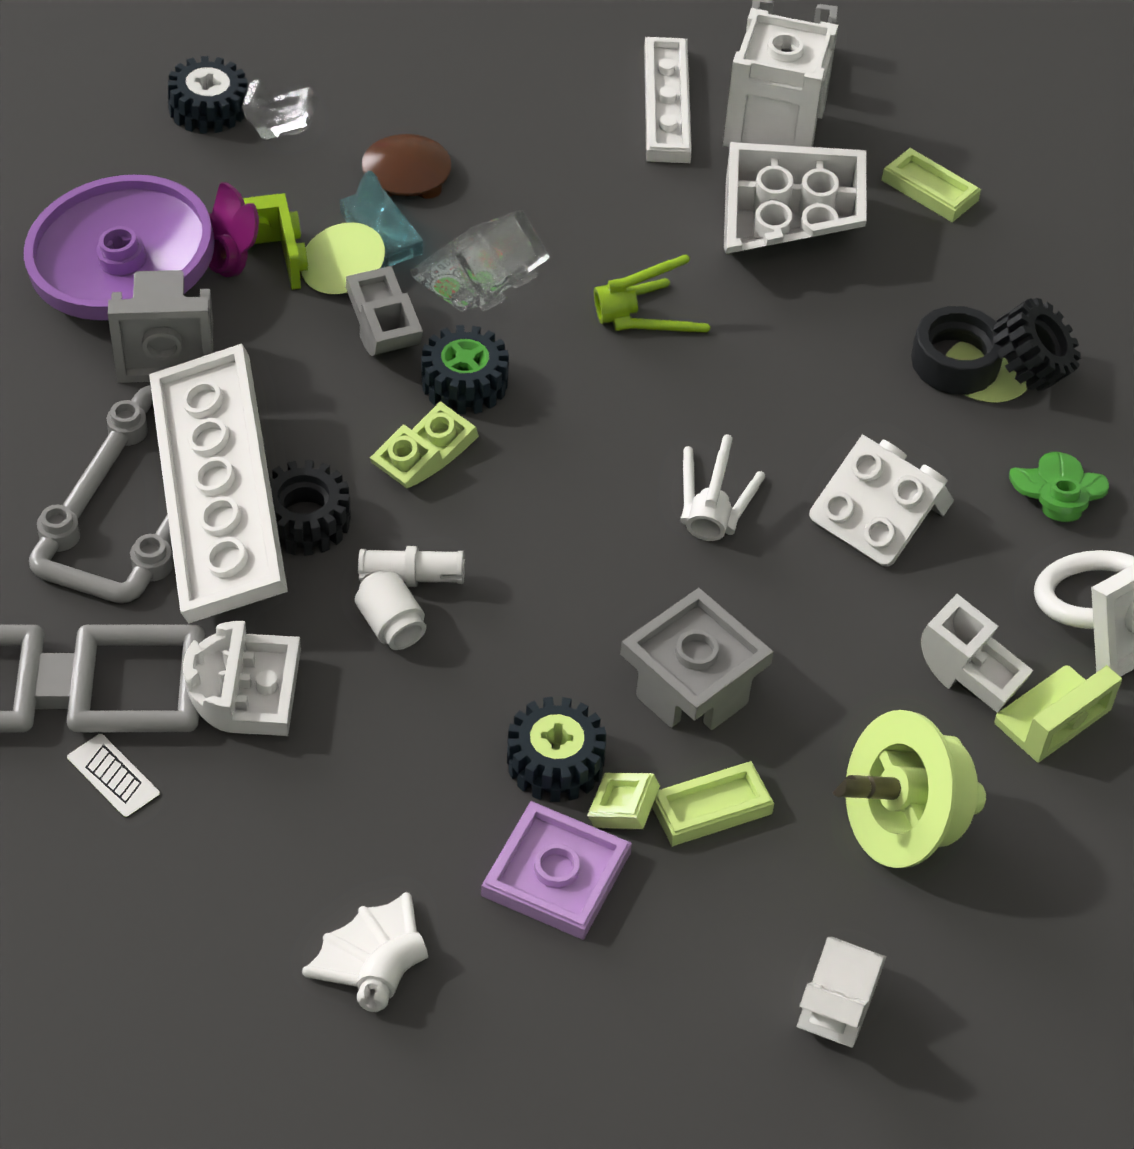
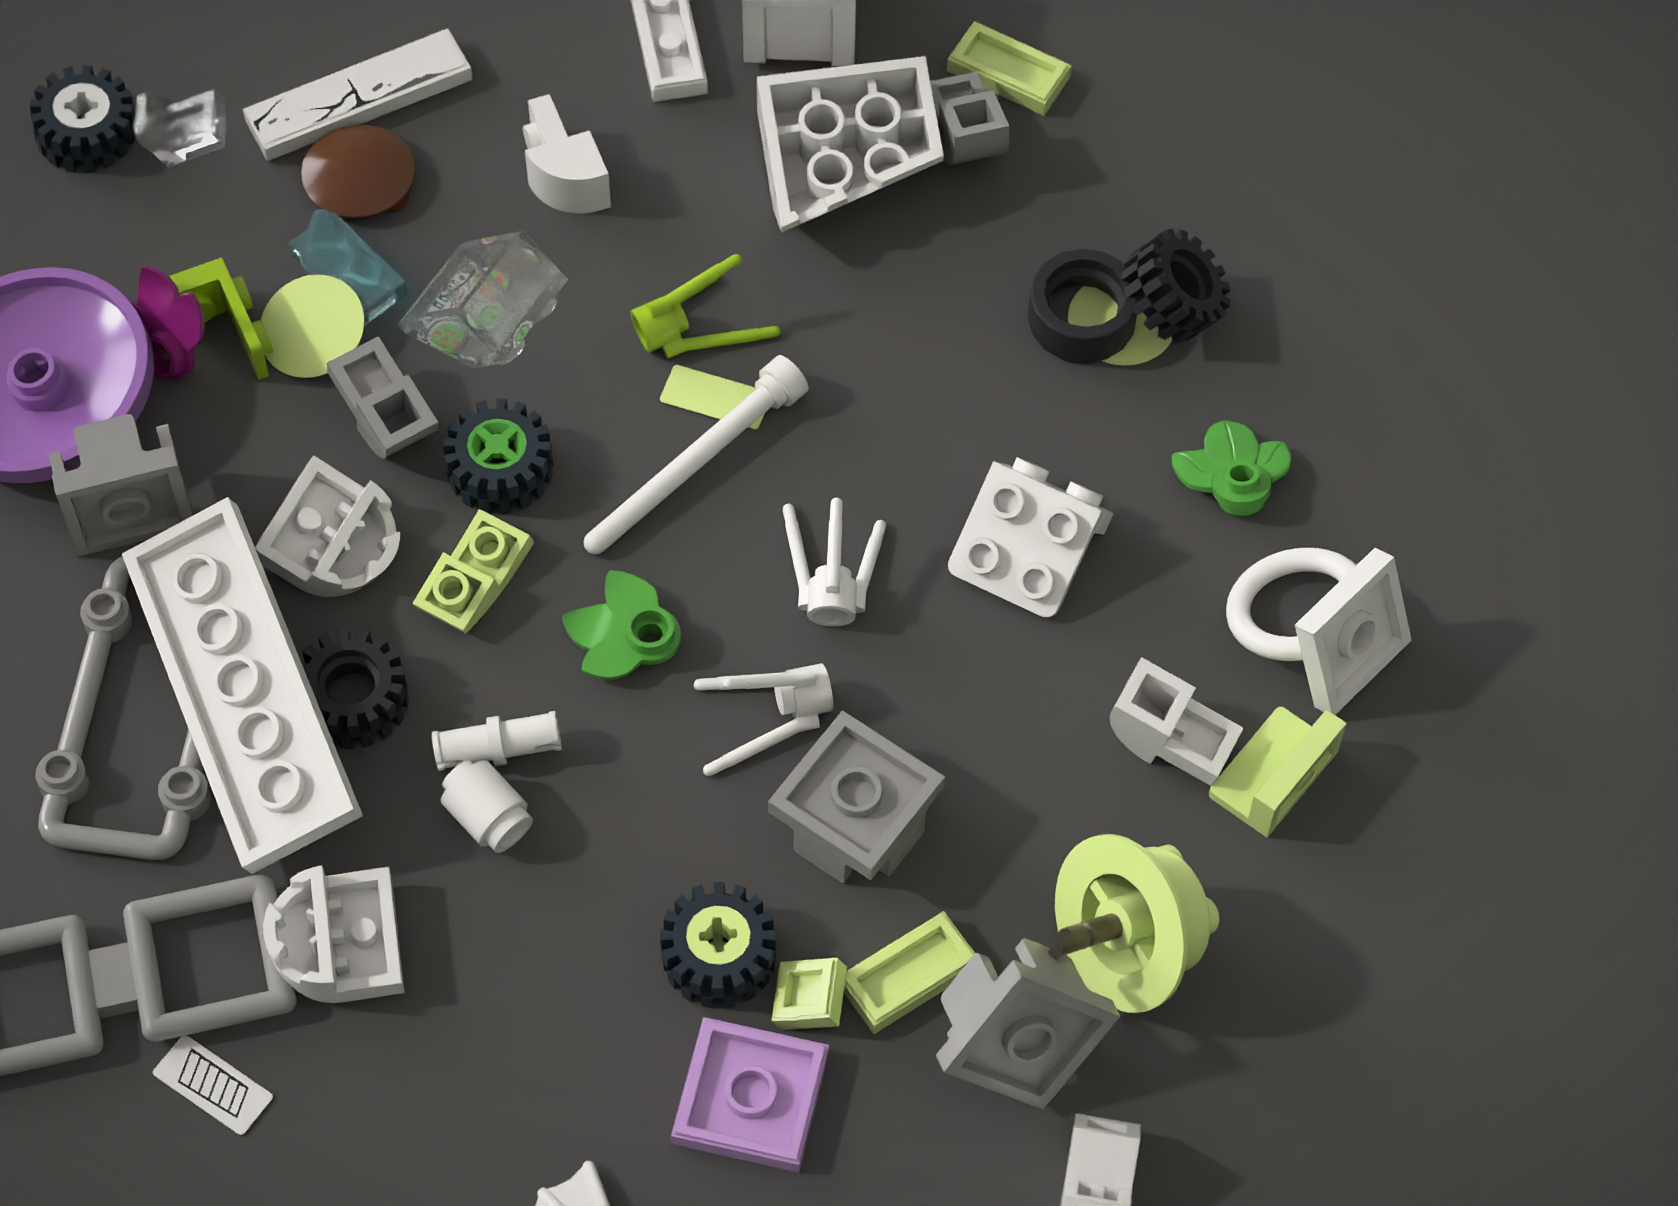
camera: 10 degrees left, 10 degrees up
(317, 397) = (330, 533): none -> white slope
(420, 115) = (357, 94): none -> white tile
(536, 510) = (615, 629): none -> bright green plate
(564, 186) = (561, 168): none -> white brick
(648, 364) = (705, 393): none -> yellowish green sticker
(666, 575) = (797, 691): none -> white plant
(700, 361) = (778, 385): none -> white piece
(800, 849) = (1022, 1028): none -> light grey panel
(892, 209) = (969, 119): none -> light grey brick

